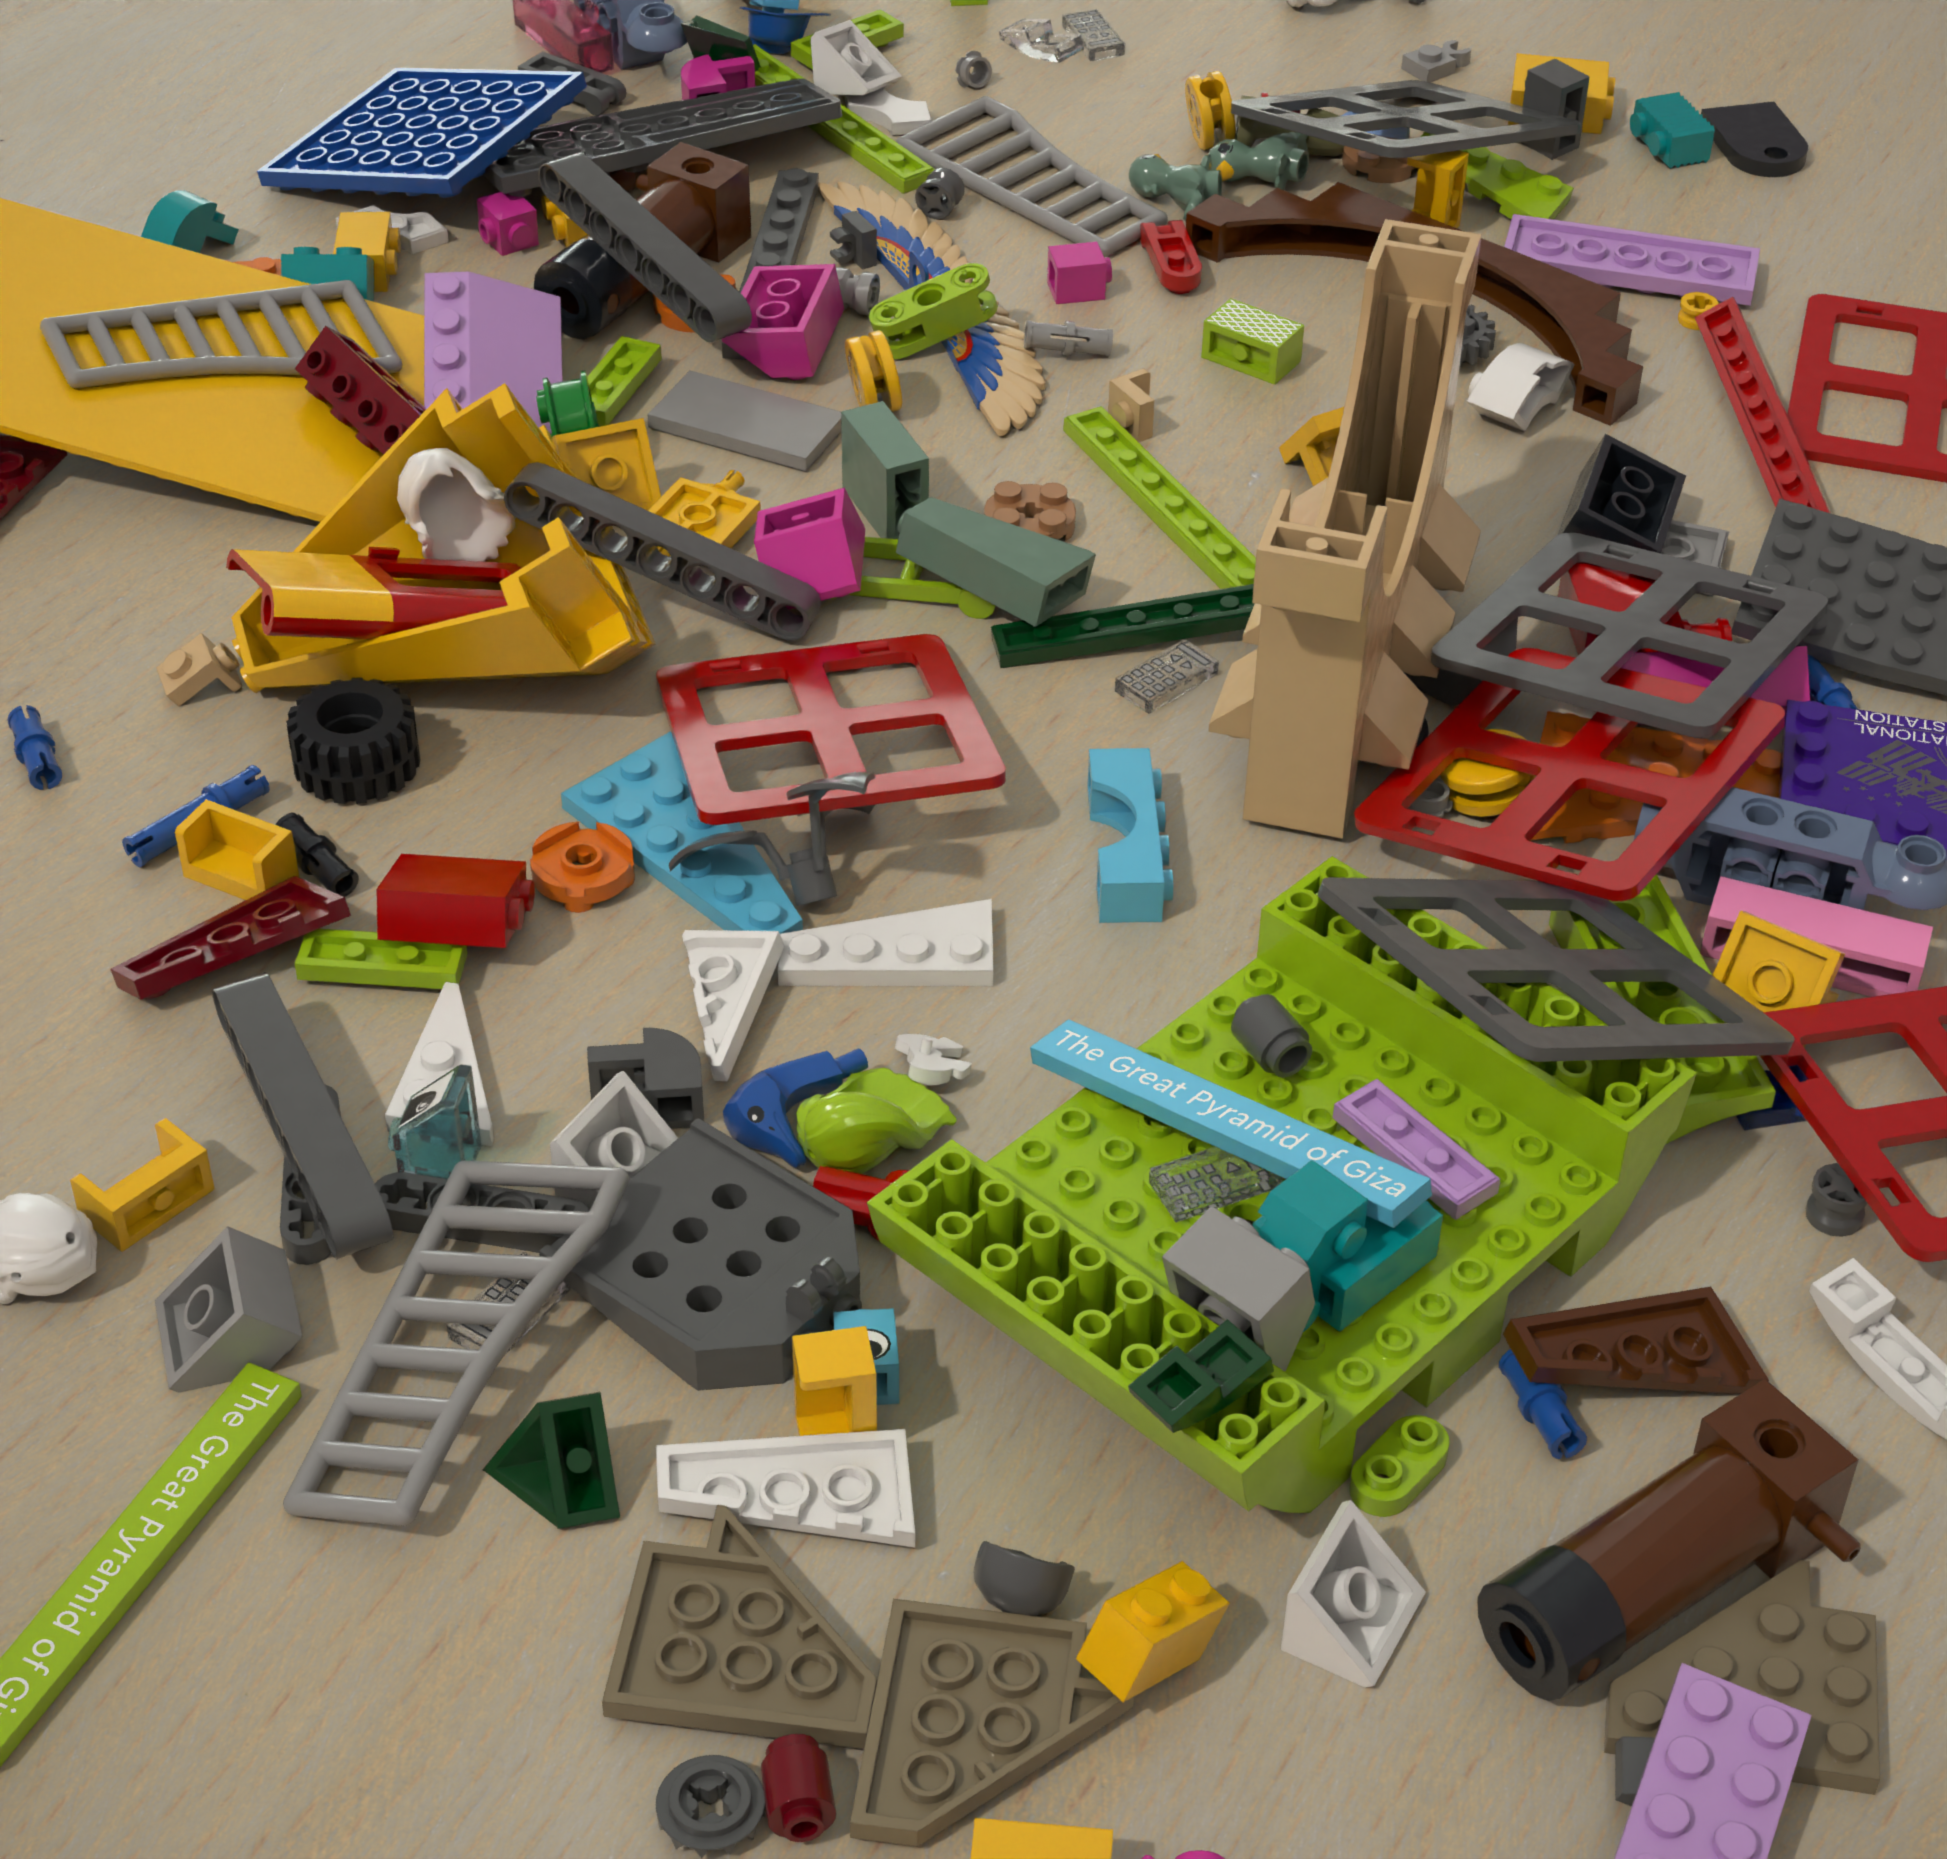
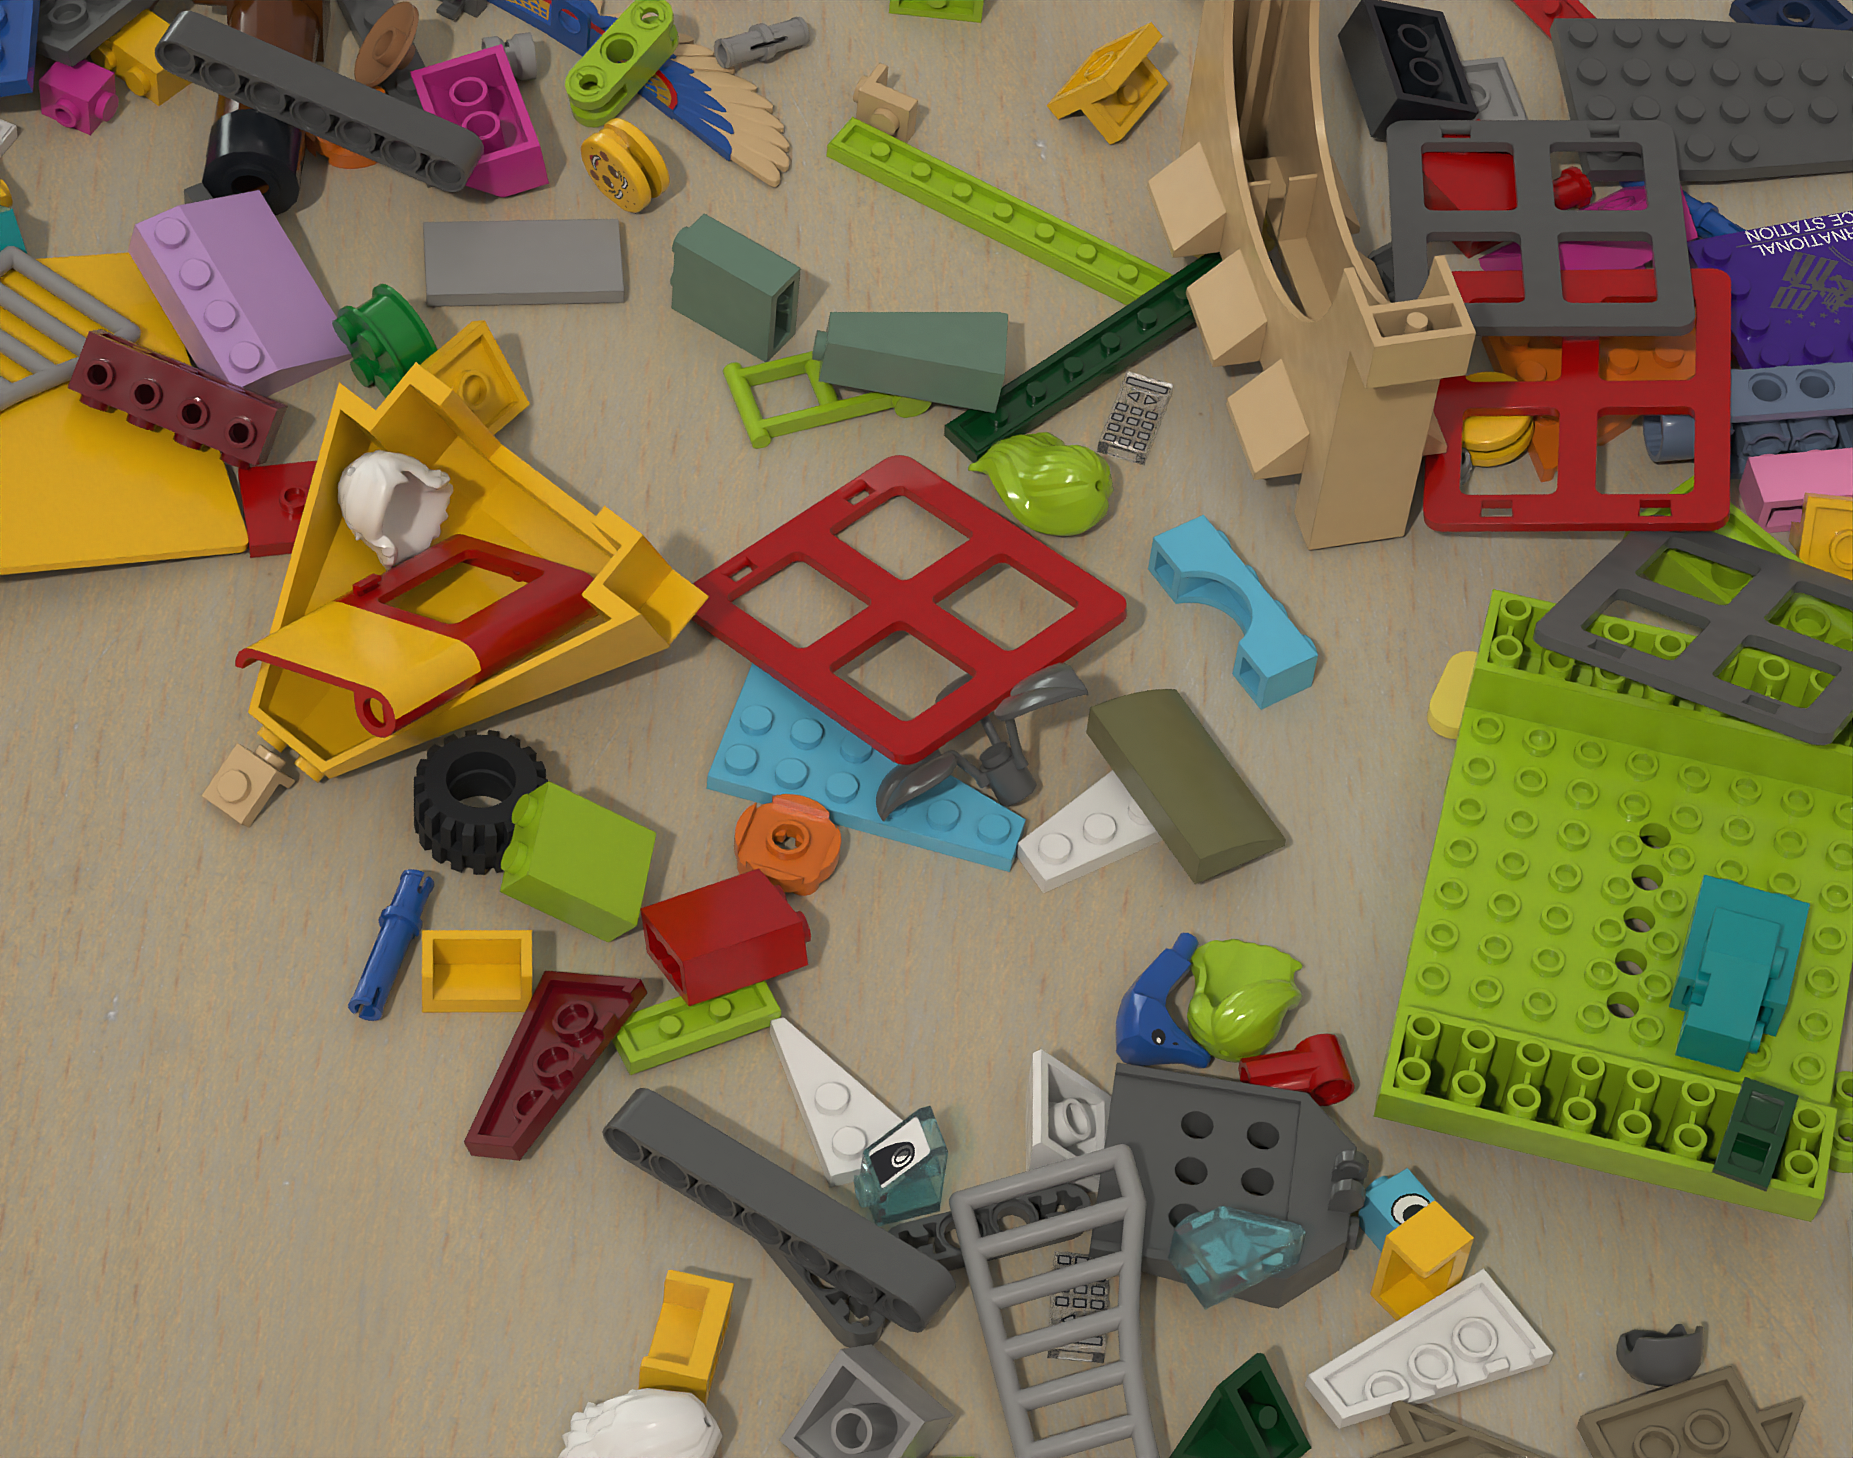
camera: 35 degrees left, 10 degrees up
(34, 747) = (164, 935): blue pin -> none
(318, 856) = (546, 939): black pin -> none
(374, 796) = (577, 861): none -> lime brick
(621, 375) = (355, 251): lime plate -> none
(651, 1299) = (1232, 1251): none -> clear light blue slope
(661, 1067) = (1030, 1022): dark grey brick -> none
(686, 548) = (618, 471): dark grey beam -> none
(709, 509) = (580, 407): yellow plate -> none
(729, 983) = (1013, 908): white wing -> none
(756, 251) = (387, 45): none -> medium nougat dish
(815, 542) = (736, 410): dark pink slope -> none
(926, 1058) = (1229, 911): white piece -> none
(959, 934) = (1182, 782): none -> olive slope
(1028, 688) = (1049, 483): none -> lime piece
(1046, 504) = (881, 256): medium nougat plate -> none
(1152, 1630) = (1794, 1351): yellow brick -> none
(1207, 1180) = (1595, 939): clear tile -> none
(1226, 1118) = (1577, 885): medium azure tile -> none
(1240, 1277) = (1726, 1036): light grey slope -> none
(1271, 1035) = (1553, 786): dark grey brick -> none
(1409, 1139) = (1723, 843): lavender tile -> none

